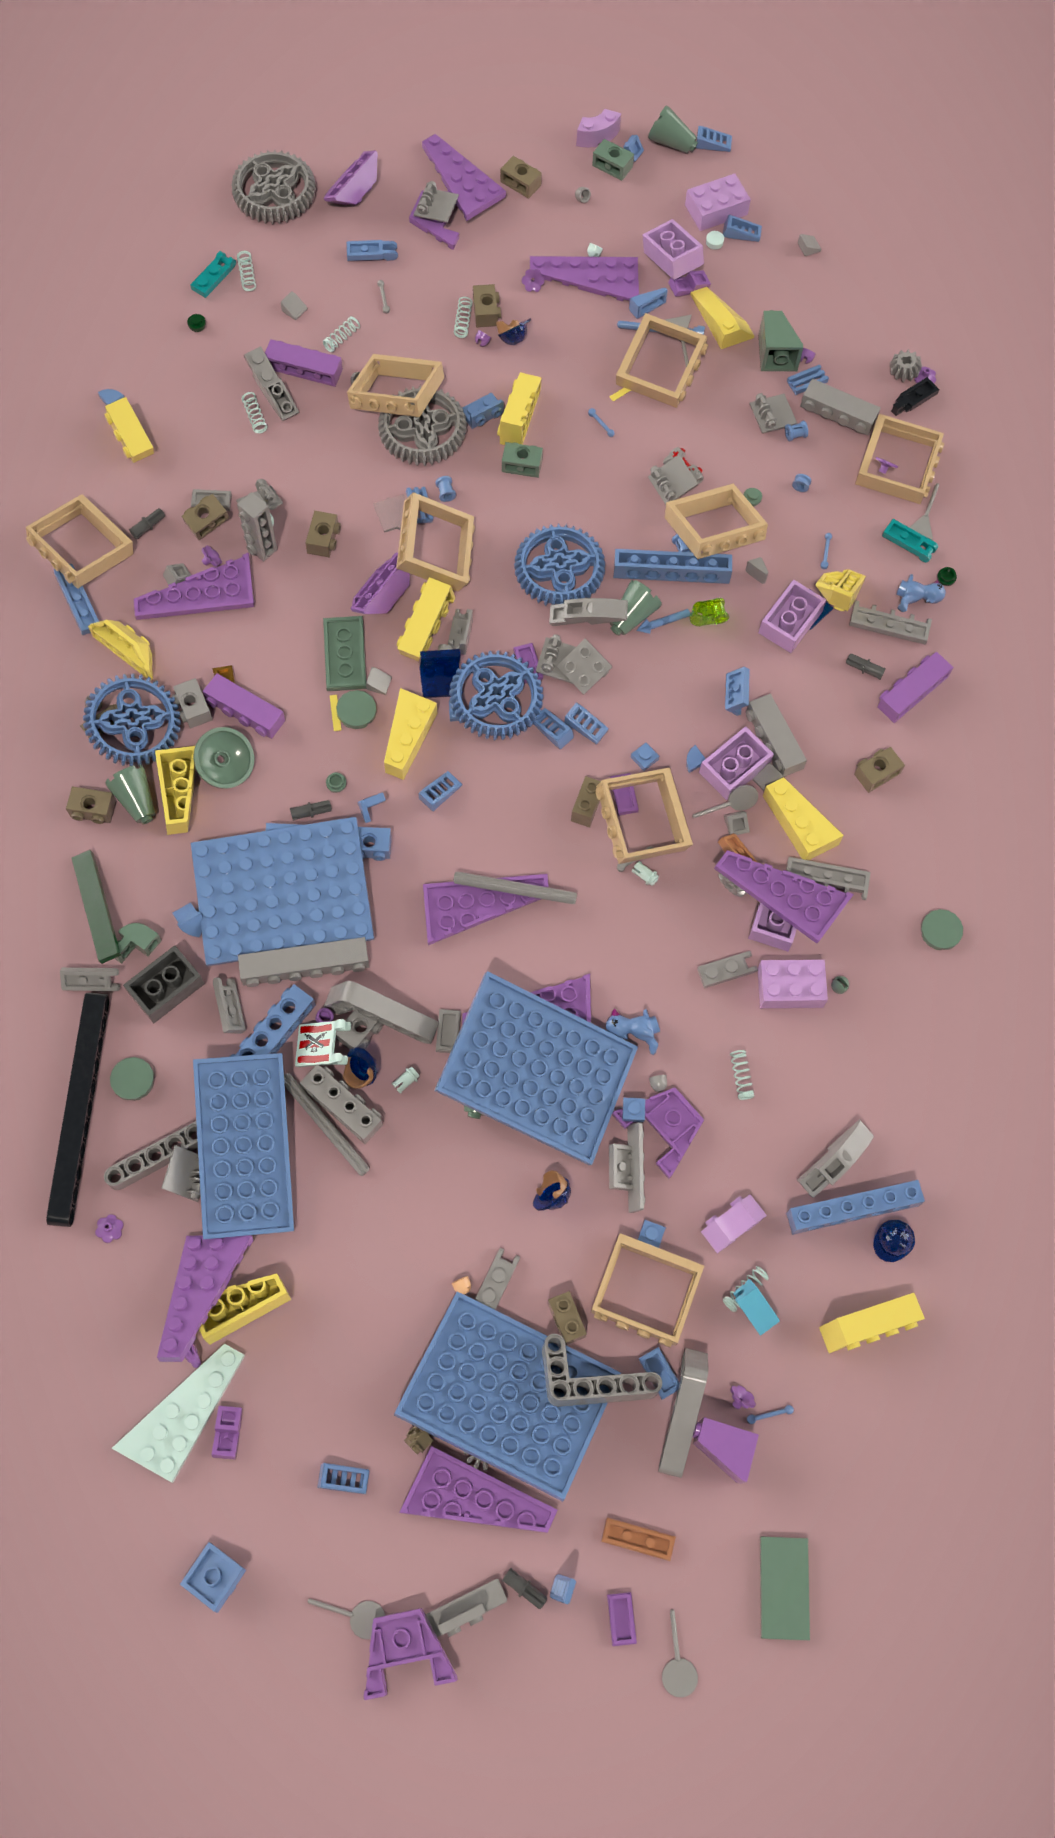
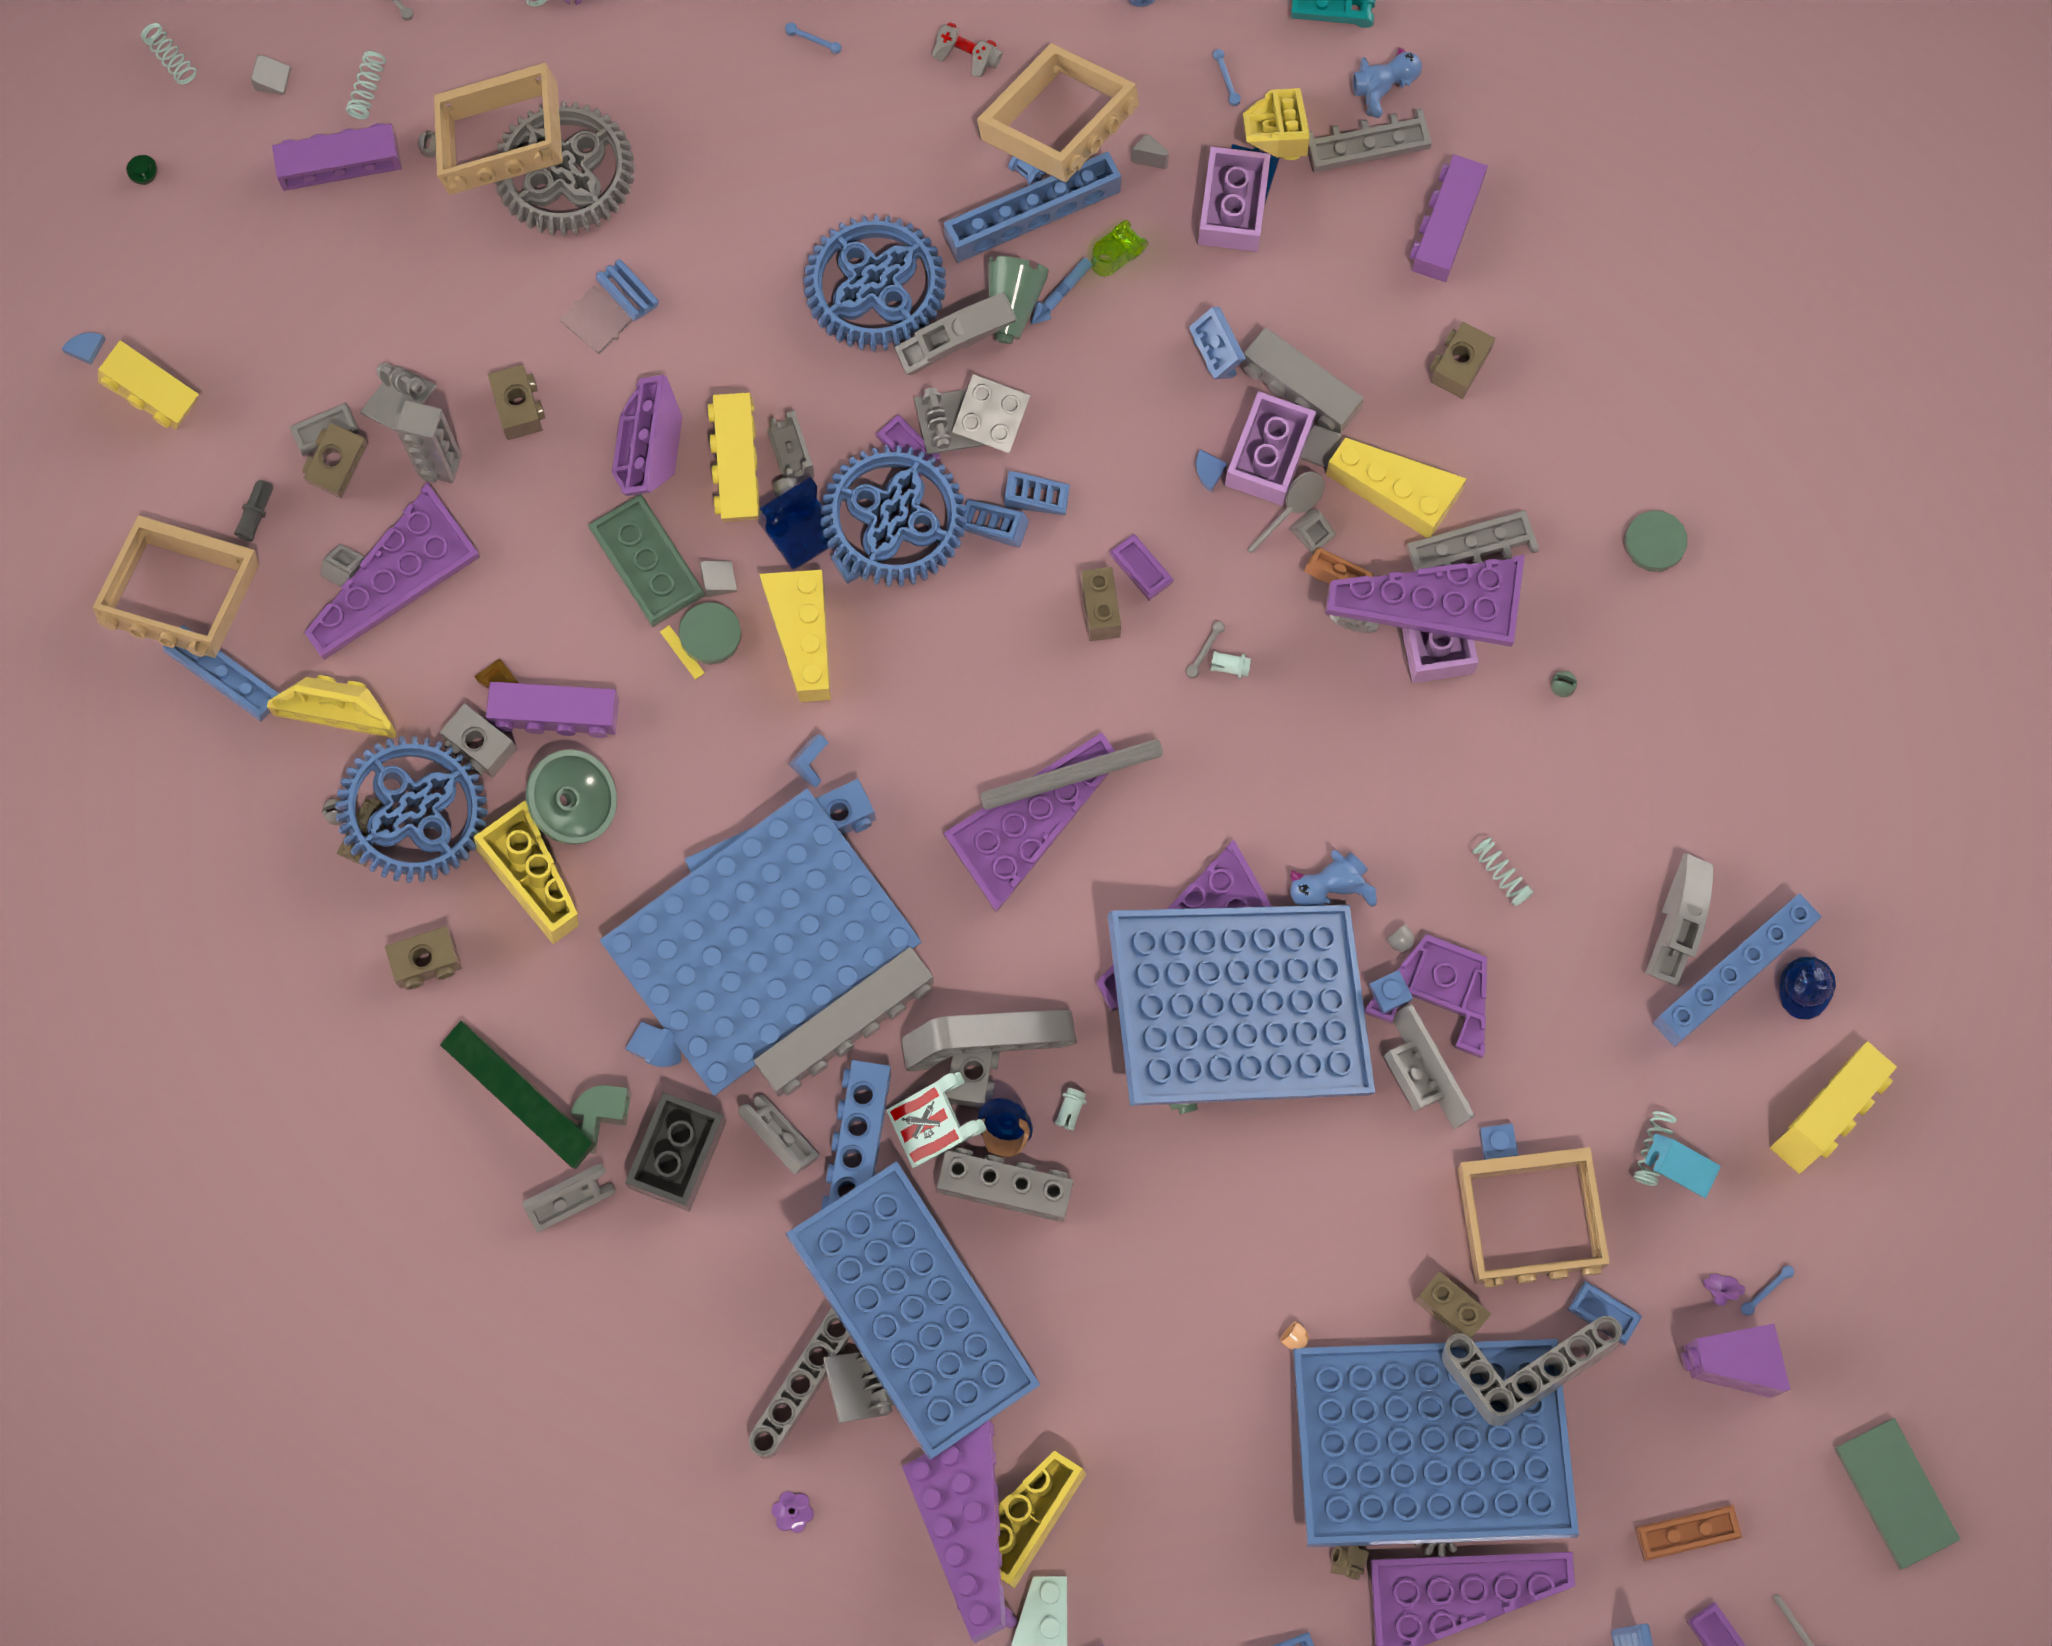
camera: 25 degrees left, 5 degrees up
(78, 1110) = (658, 1379): black beam -> none
(132, 1079) = (705, 1300): sand green tile -> none
(133, 792) = (476, 912): sand green cone -> none
(210, 556) = (376, 515): medium lavender plant -> none
(213, 274) = (121, 83): teal plate -> none
(258, 423) = (327, 282): light aqua piece -> none
(270, 384) = (310, 214): light grey slope -> none
(310, 809) = (730, 807): dark grey axle -> none
(324, 1013) = (911, 1078): medium lavender hinge -> none
(325, 1125) = (1002, 1226): light grey axle -> none
(336, 782) = (742, 751): sand green plate -> none
(407, 540) = (651, 351): tan window -> none
(434, 804) = (883, 712): medium blue slope -> none
(445, 488) = (651, 247): medium blue bush -> none
(447, 1030) = (1088, 1014): light grey tile -> none
(483, 410) = (636, 101): medium blue bracket -> none
(496, 1280) = (1335, 1307): light grey hinge -> none
(514, 464) = (728, 163): sand green brick -> none
(519, 409) = (691, 77): light yellow wedge -> none
(553, 1192) = (1345, 1155): clear blue piece -> none
(645, 756) = (1140, 500): medium blue plate -> none
(672, 479) = (962, 77): light grey hinge -> none
(672, 807) = (1220, 555): tan window -> none
(685, 1412) = (1667, 1343): light grey beam -> none
(725, 970) = (1405, 741): light grey hinge -> none
(737, 1220) = (1596, 1072): lavender brick -> none
(753, 495) = (1085, 46): sand green plate -> none
(792, 984) = (1503, 716): lavender brick -> none
(865, 666) = (1367, 220): dark grey axle -> none
(947, 576) = (1409, 35): dark green plate -> none

